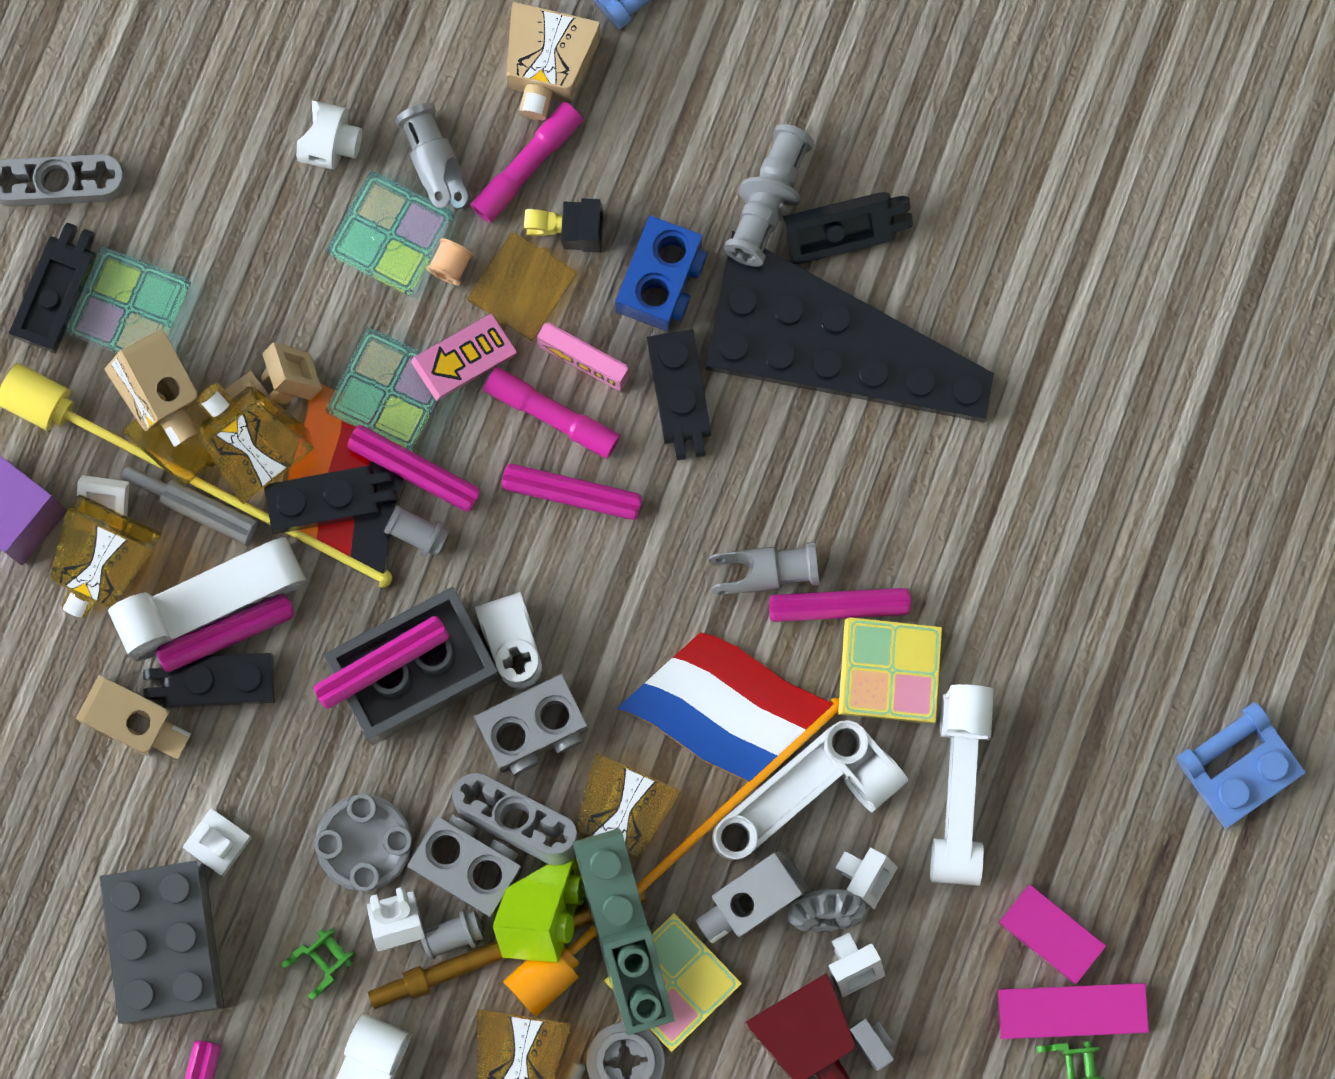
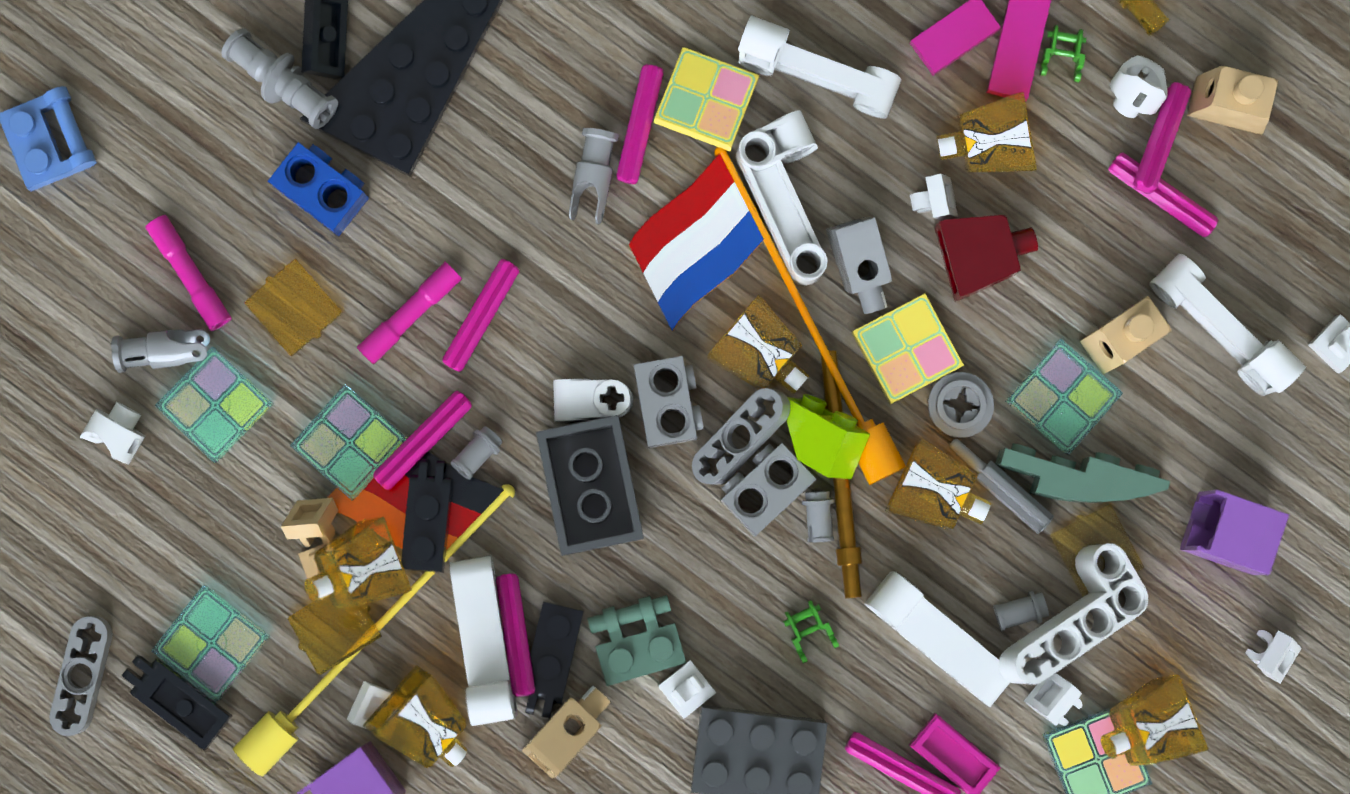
camera: 75 degrees left, 5 degrees up
(154, 369) = (291, 635): tan torso -> none
(196, 506) = (400, 631): light grey axle -> none
(244, 780) = (639, 653): none -> sand green plate
(363, 842) = (722, 568): light grey dish -> none
(381, 662) = (583, 508): dark pink axle -> none
(395, 920) = (794, 559): white tile -> none
(449, 261) = (255, 361): light nougat axle -> none
(463, 357) = (340, 371): bright pink tile -> none
(548, 56) = (101, 228): tan torso -> none
(579, 225) = (256, 244): black piece -> none
(583, 356) = (370, 272): bright pink tile -> none
(623, 931) = (859, 374): sand green slope -> none
(679, 390) = (422, 202): black hinge -> none
(826, 910) = (888, 205): light grey gear -> none
(867, 876) = (868, 166): white tile -> none
(873, 1043) = (1003, 201): light grey plate -> none
(942, 1009) = (992, 137): none -> clear yellow torso

